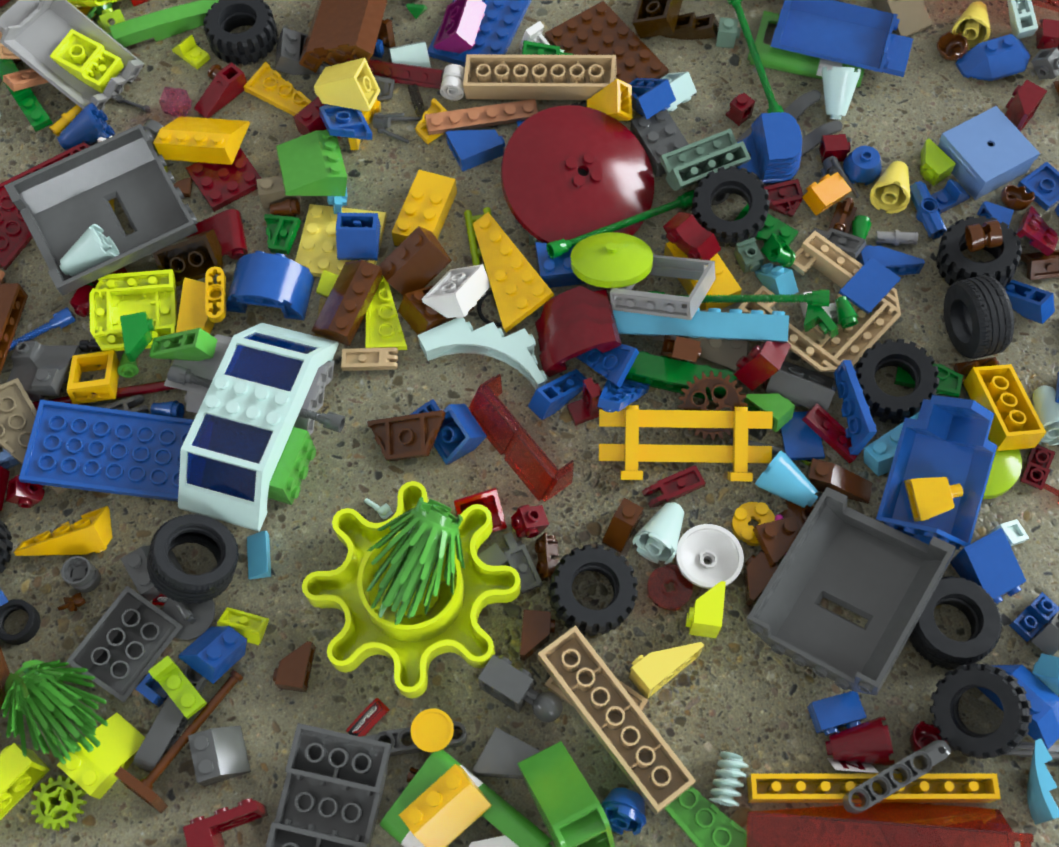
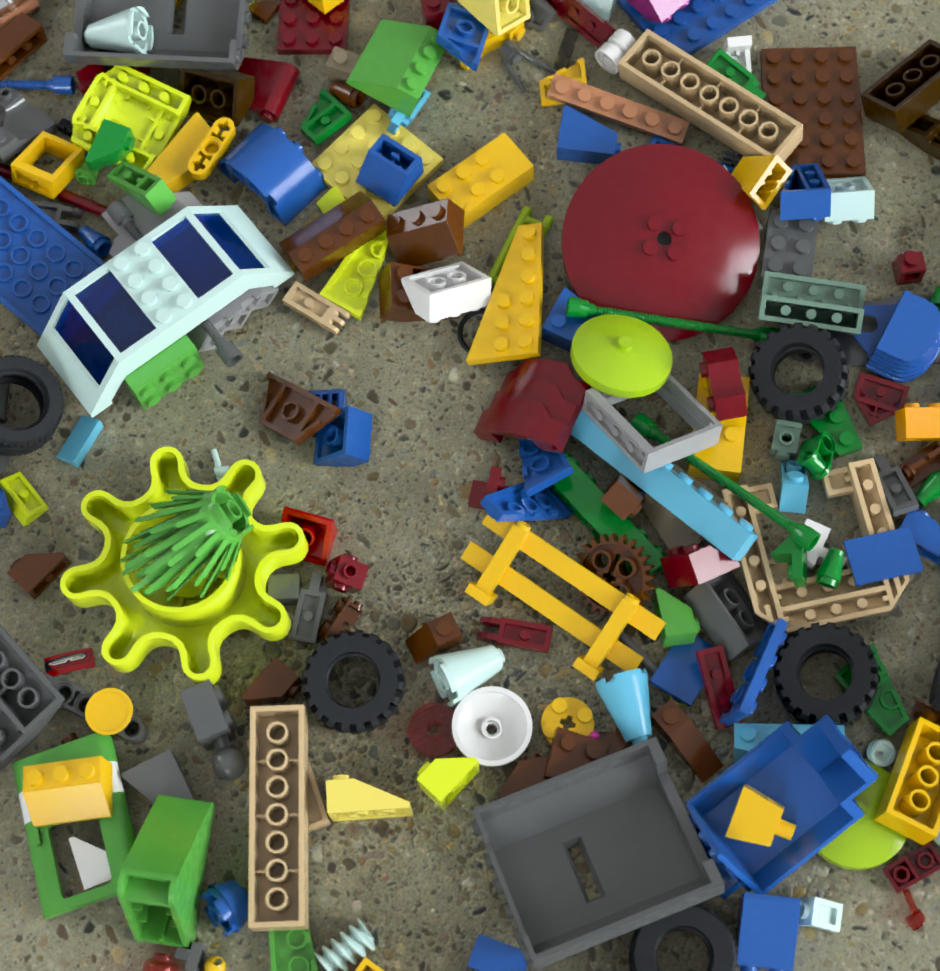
camera: 40 degrees right, 5 degrees up
(459, 337) = (420, 342): light aqua arch -> none
(516, 444) = (387, 479): clear red piece -> none
(556, 394) = (471, 462): blue slope -> none

